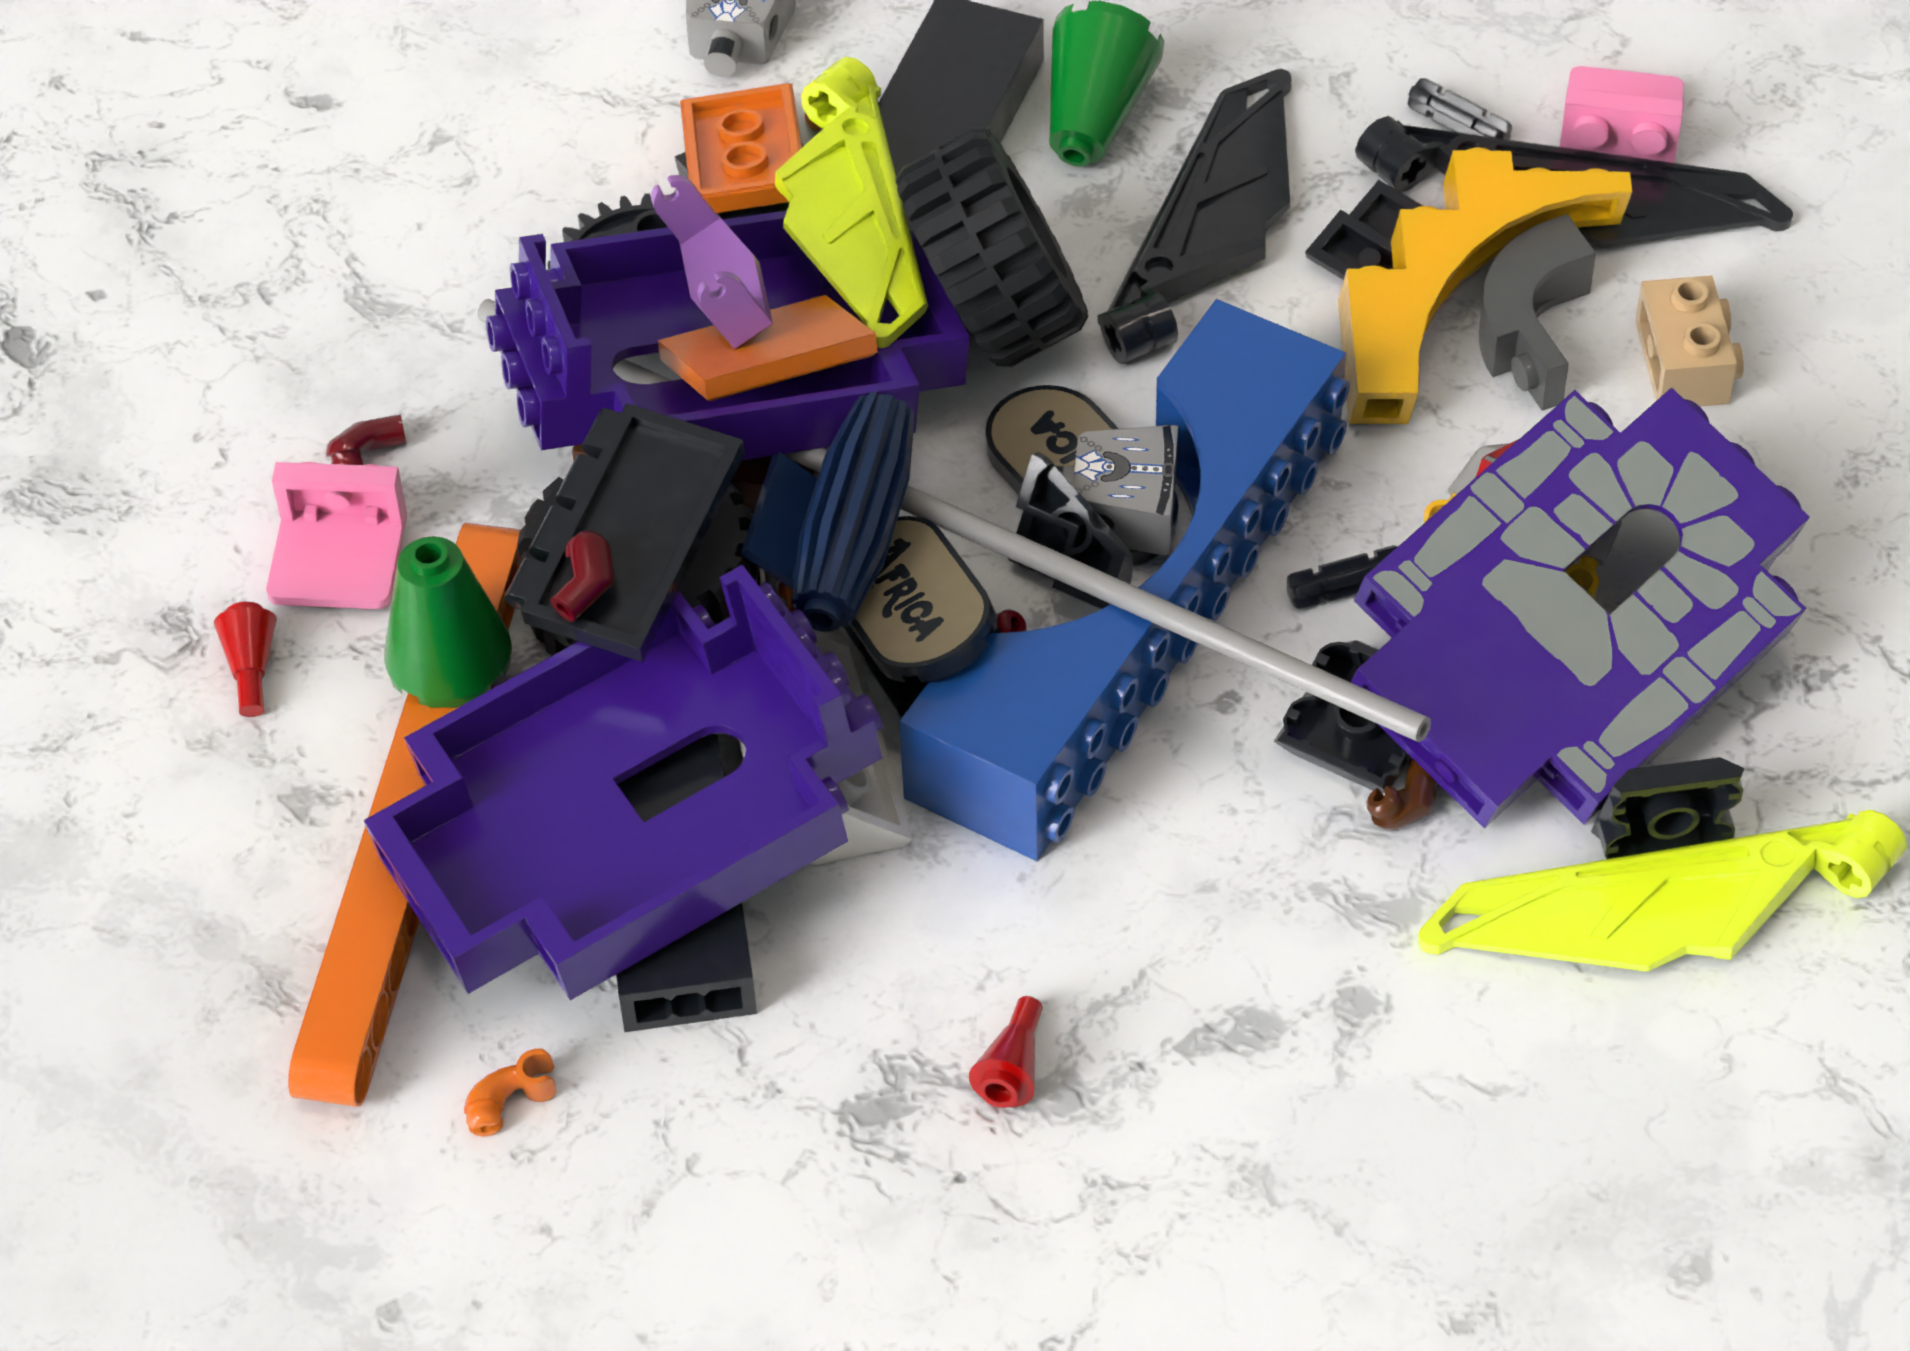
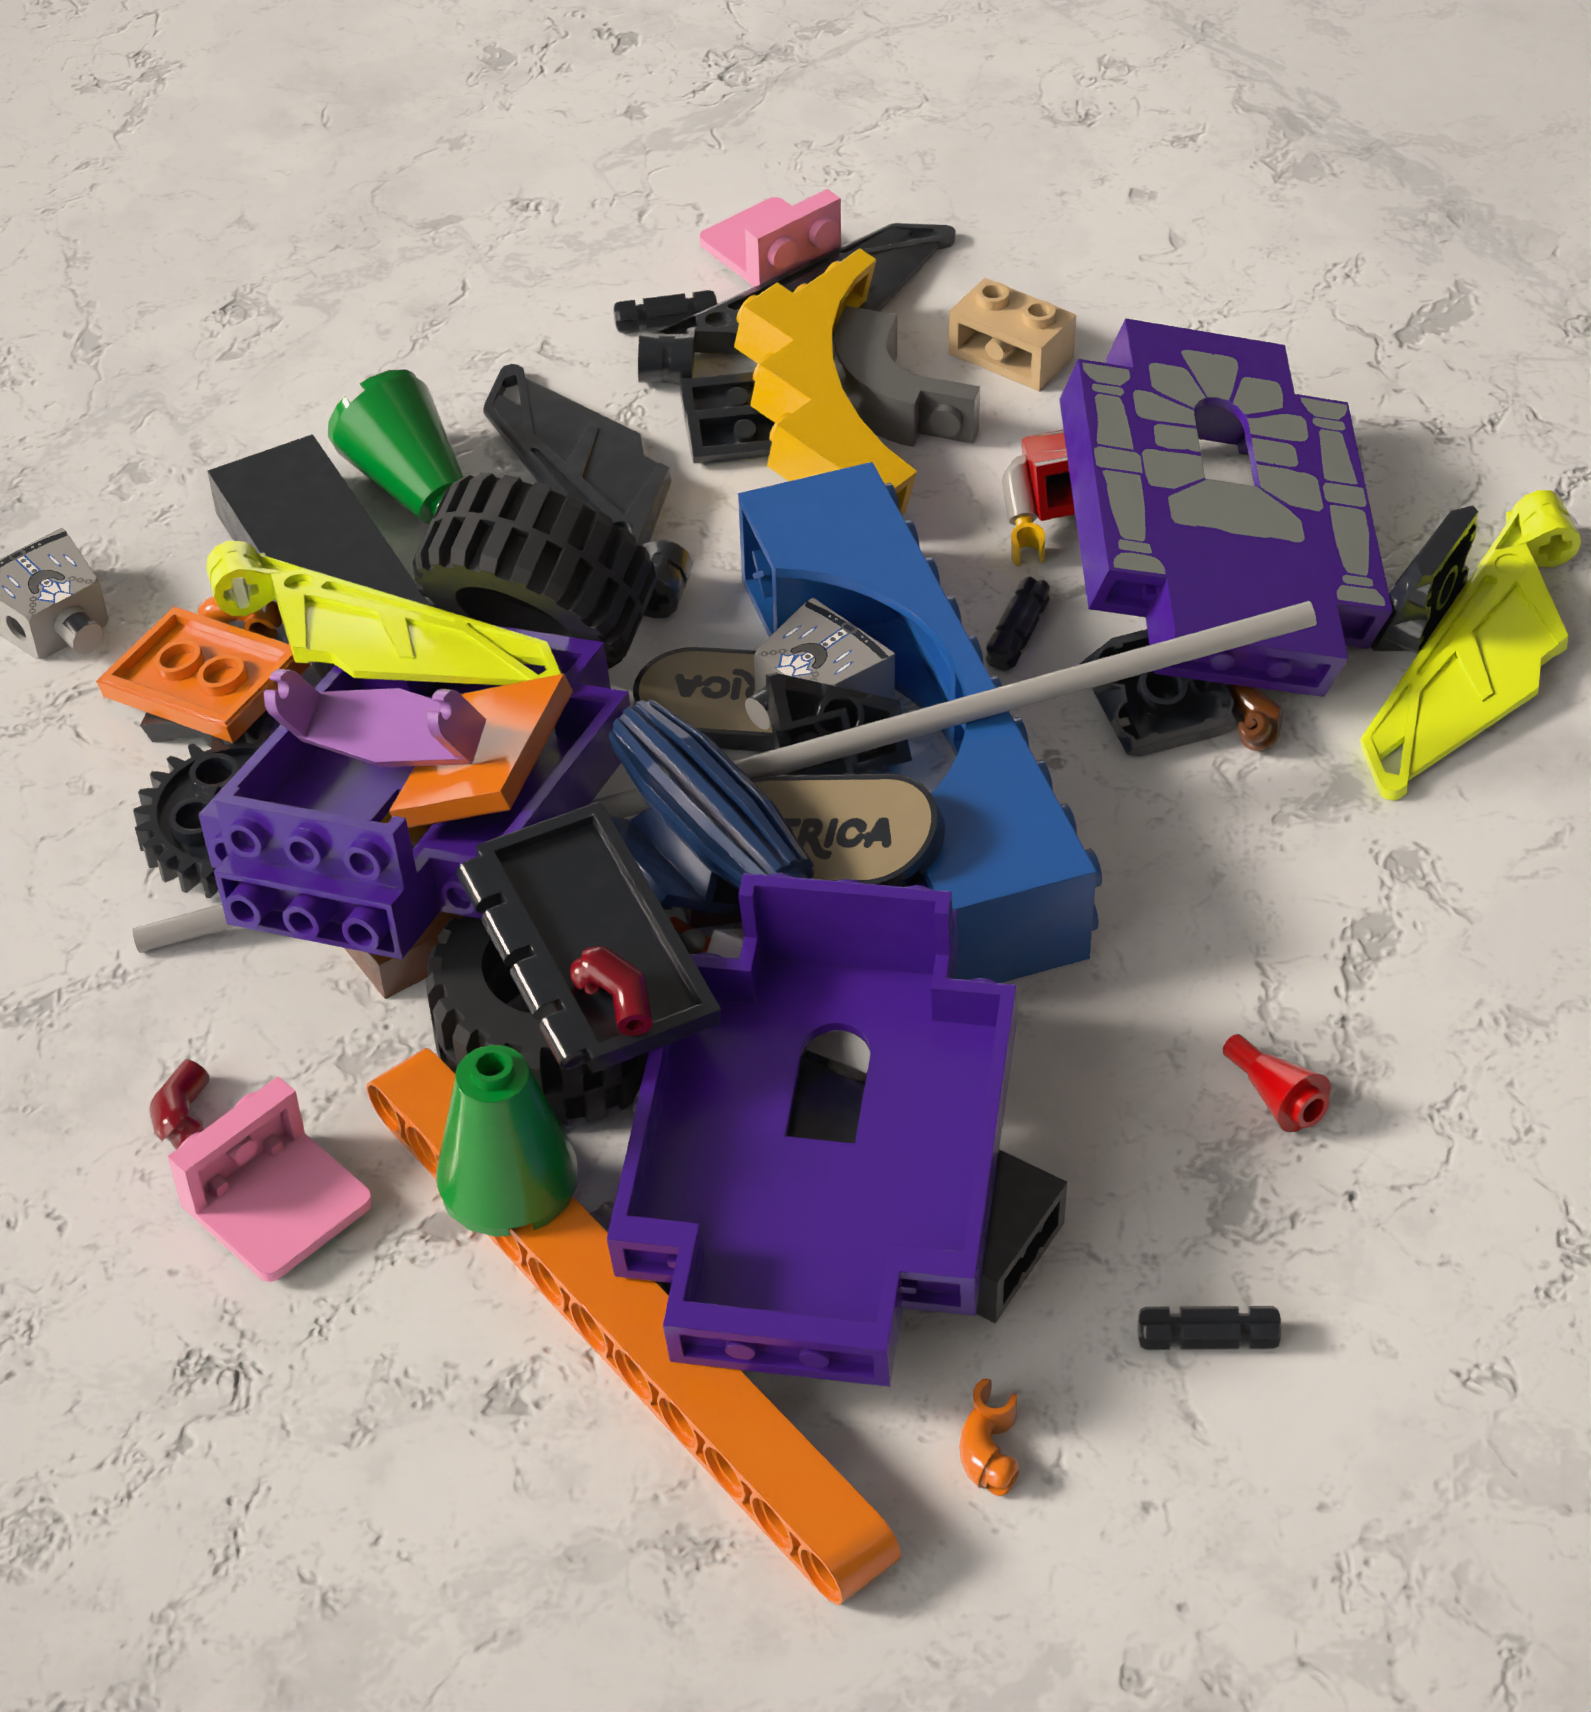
camera: 50 degrees left, 5 degrees down
(246, 639) = (302, 1321): red cone -> none
(731, 1161) = (1209, 1327): none -> black axle

